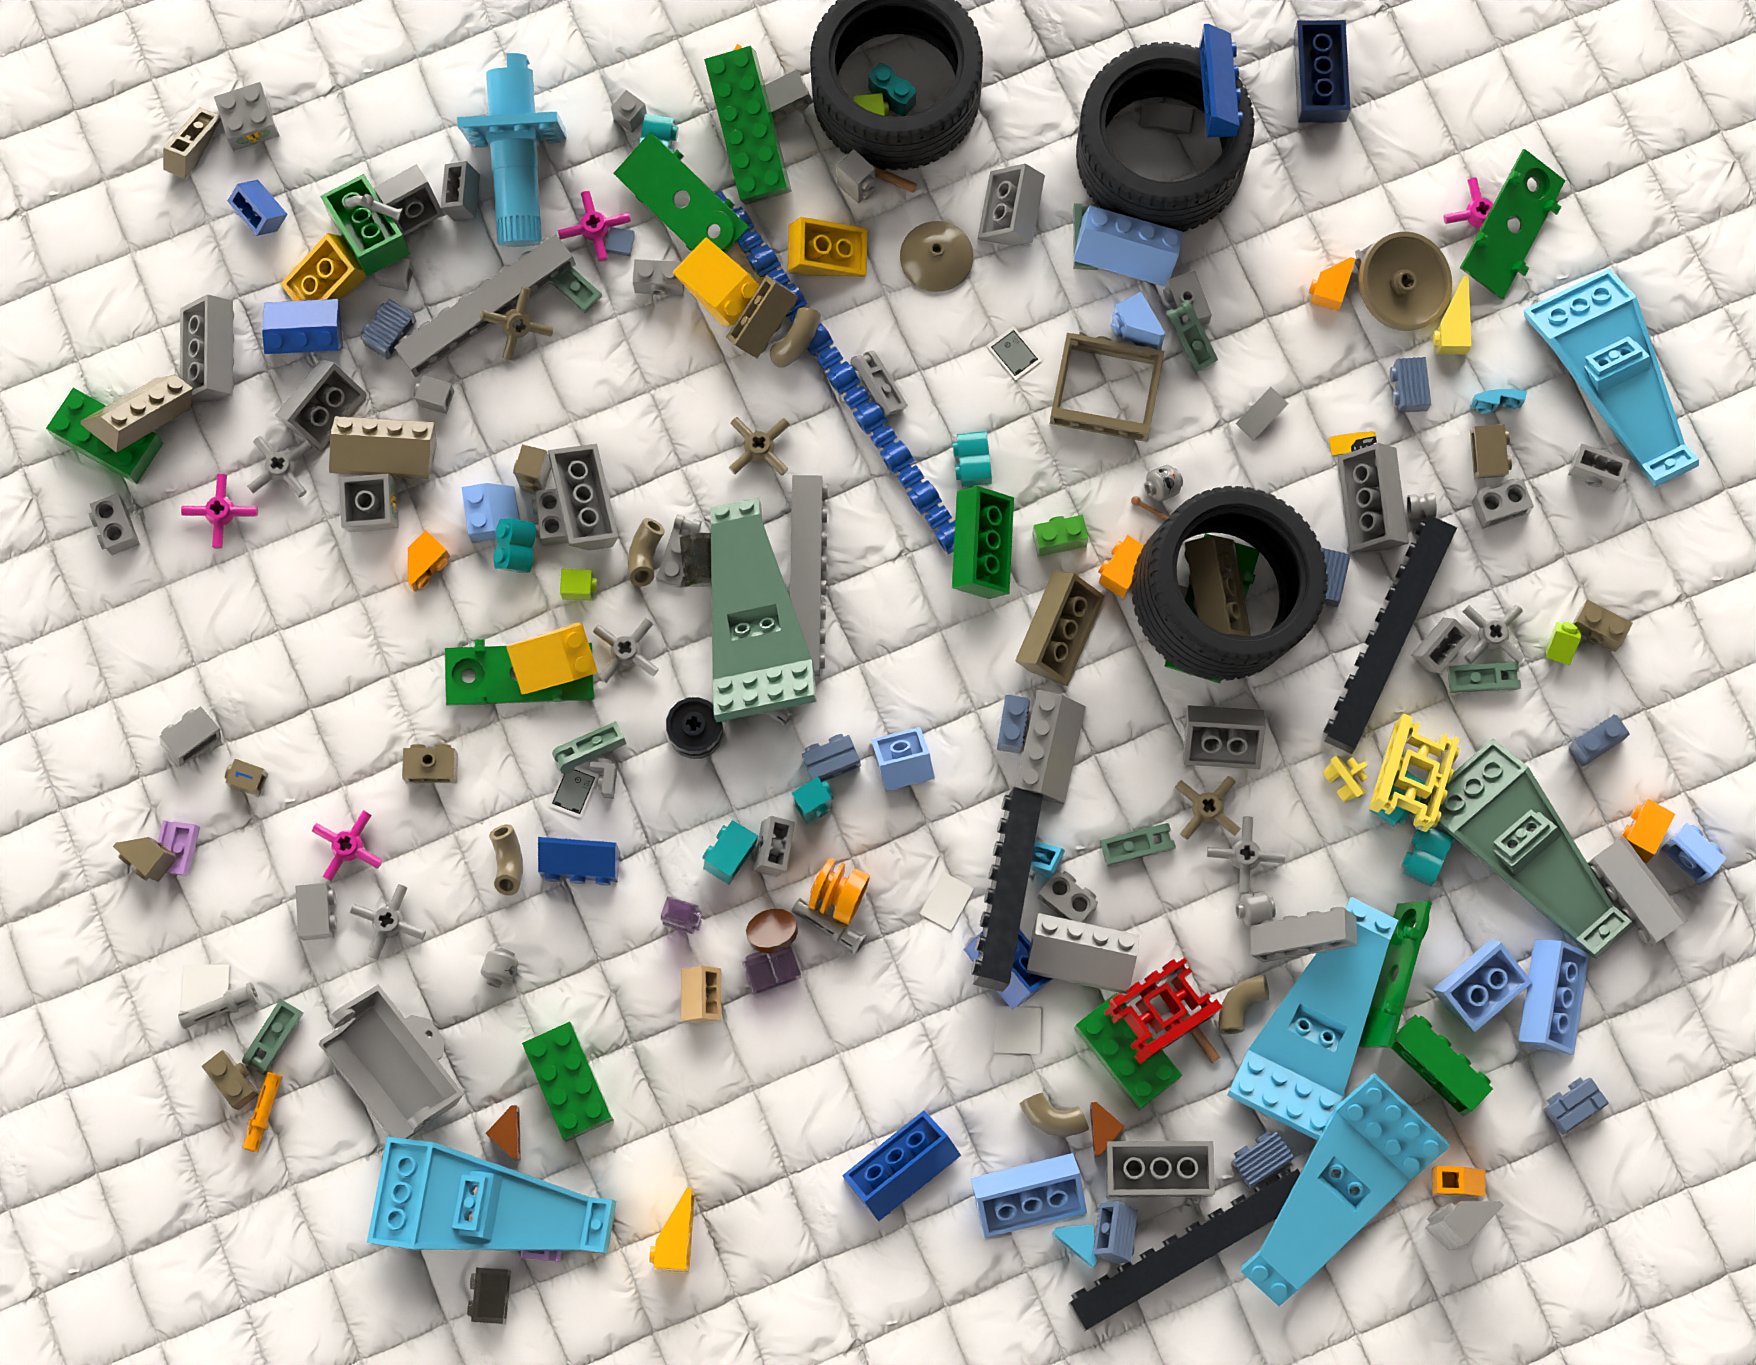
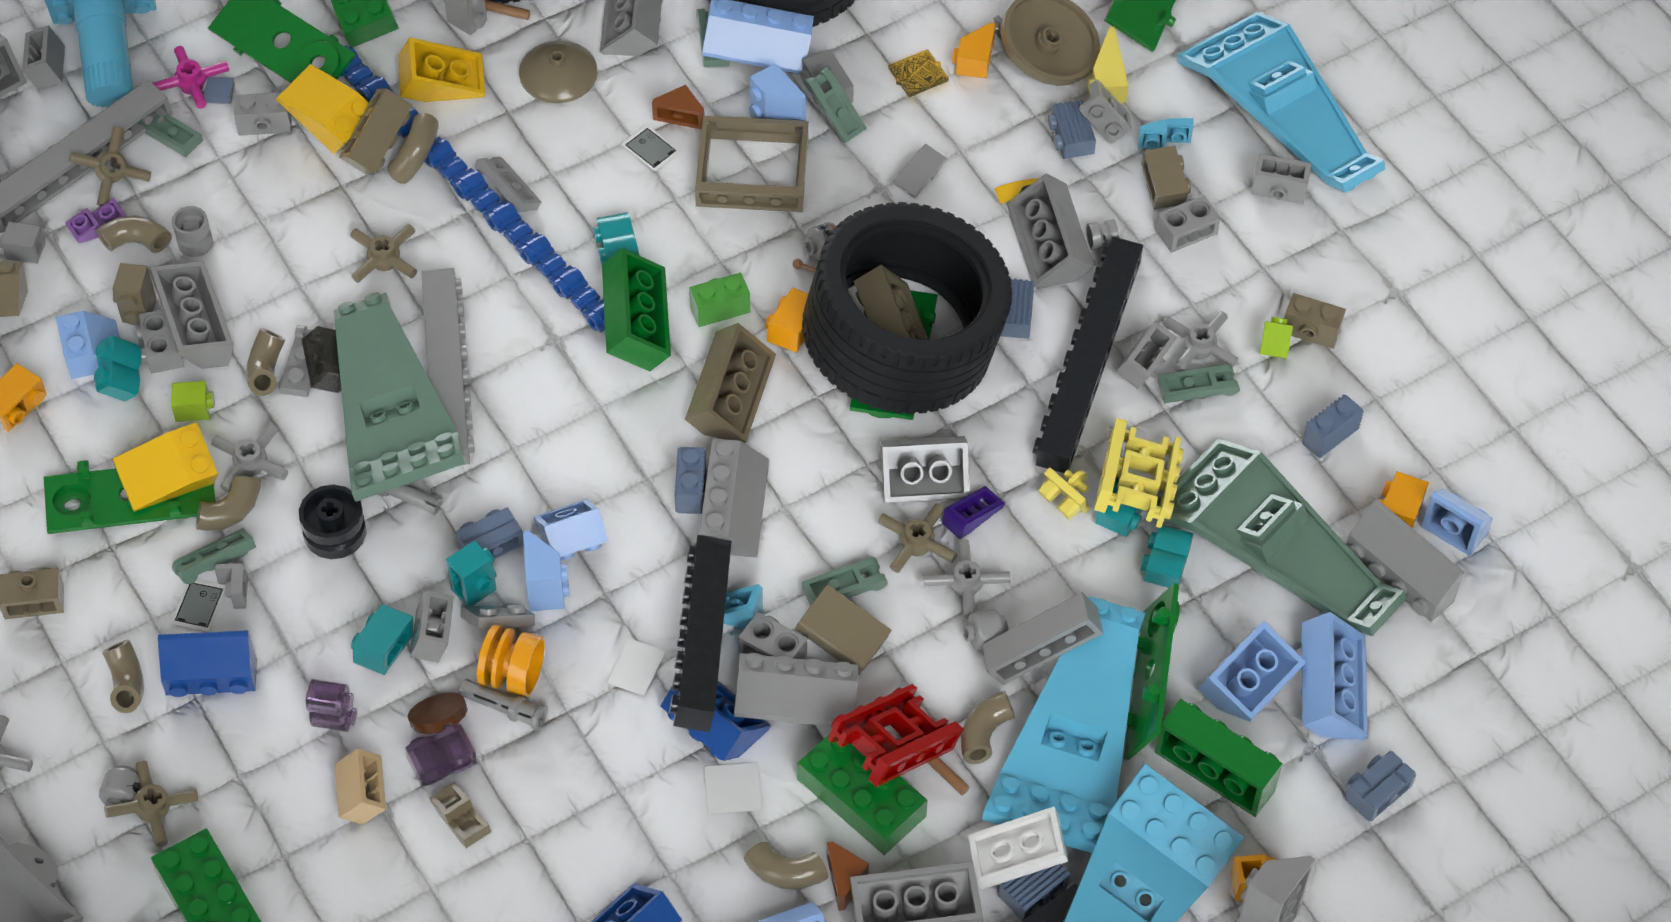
camera: 10 degrees left, 20 degrees down
(502, 377) = (85, 223): none -> medium lavender slope
(529, 978) = (150, 812): none -> dark tan bar
(536, 393) = (134, 229): none -> dark tan cylinder
(587, 403) = (192, 231): none -> light grey wheel
(608, 700) = (232, 508): none -> dark tan cylinder
(783, 1027) = (460, 815): none -> dark tan slope
(830, 842) = (485, 616): none -> light grey wing
(875, 810) = (544, 575): none -> light blue slope
(1046, 316) = (678, 108): none -> dark orange slope
(1130, 894) = (843, 628): none -> dark tan piece
(1247, 793) = (959, 523): none -> dark purple slope
(1253, 1133) = (1017, 848): none -> white plate
(1275, 298) = (918, 73): none -> clear yellow piece
(1446, 373) = (1106, 113): none -> light grey bracket

